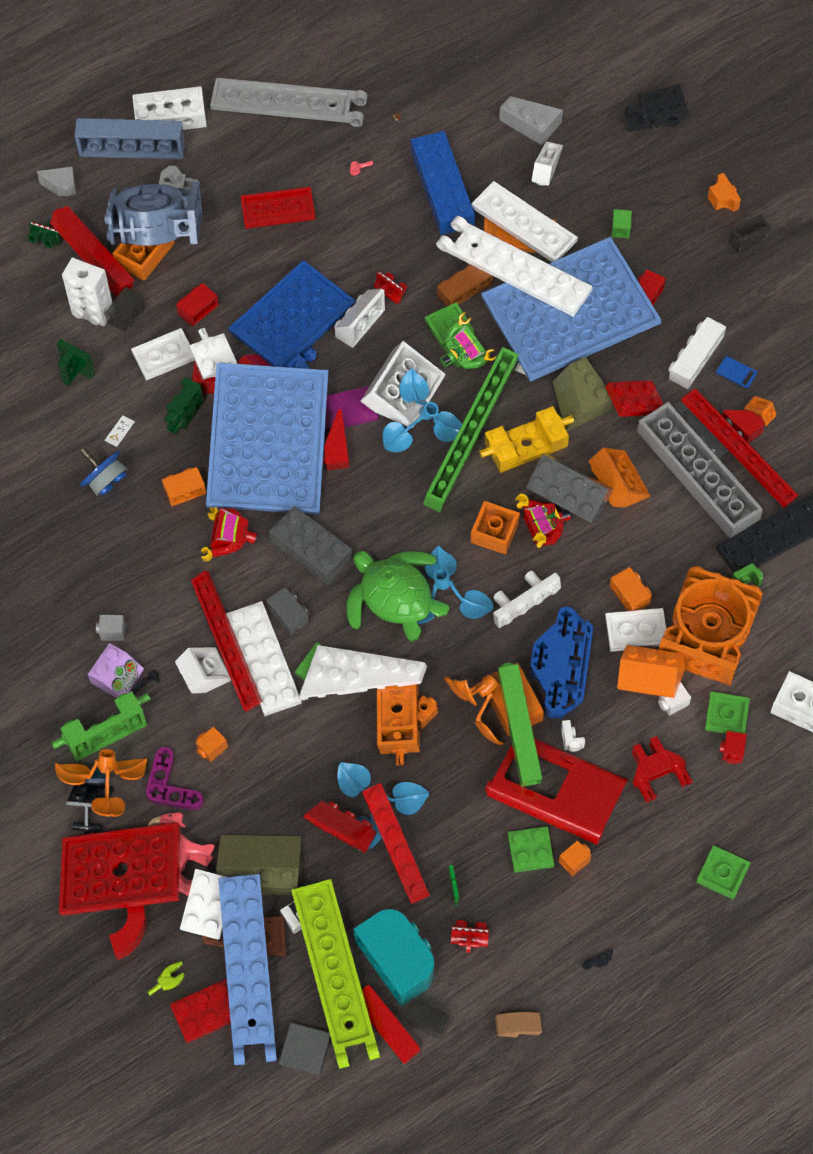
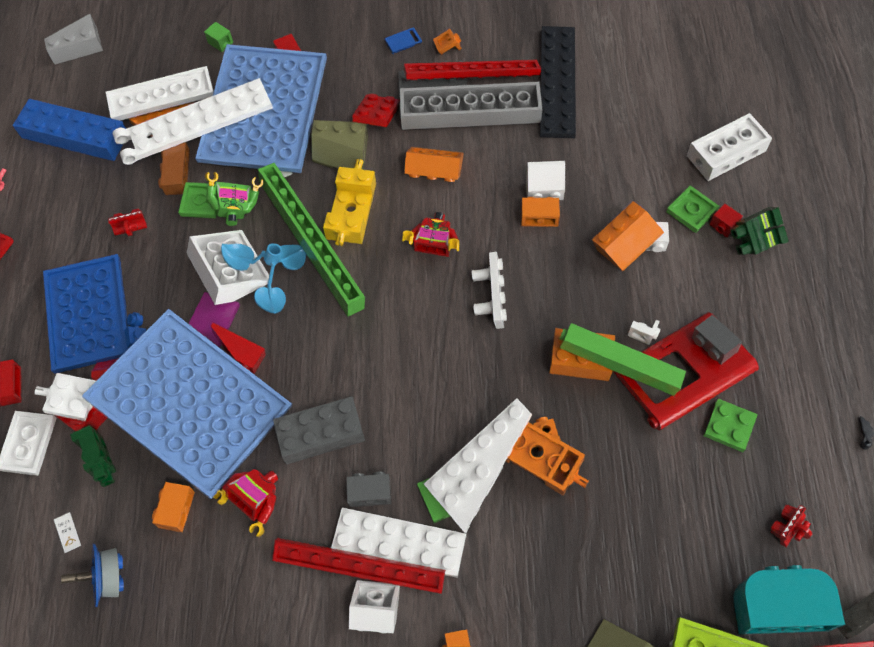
camera: 55 degrees left, 0 degrees up
(342, 825) = (625, 573): red slope -> none
(360, 317) = (135, 258): white slope -> none
(394, 591) = (416, 387): bright green animal -> none
(395, 843) = (671, 534): red plate -> none
(407, 795) = (623, 498): dark azure plant -> none
(453, 885) = (739, 508): green piece -> none
(473, 605) = (414, 336): dark azure plant -> none
(483, 688) = (573, 376): orange plant -> none
(495, 527) = (414, 273): orange brick -> none
(546, 163) = (123, 54): white slope -> none
(556, 663) = (569, 304): blue connector -> none
(569, 488) = (421, 198): dark grey brick -> none
(575, 858) = (761, 393): orange brick -> none
(595, 791) = (716, 339): none -> dark grey brick
(635, 628) = (576, 228): white plate -> none
(655, 766) = (709, 286): red connector -> none
(661, 576) = (546, 179): none -> white slope
(697, 352) = (368, 53): white brick -> none
(708, 649) = (616, 156): orange brick -> none
(723, 872) = (831, 292): bright green tile -> none
(736, 778) = (760, 231): none -> dark green hips
(746, 422) = (452, 53): red slope -> none
(748, 573) = (583, 124): bright green bracket -> none

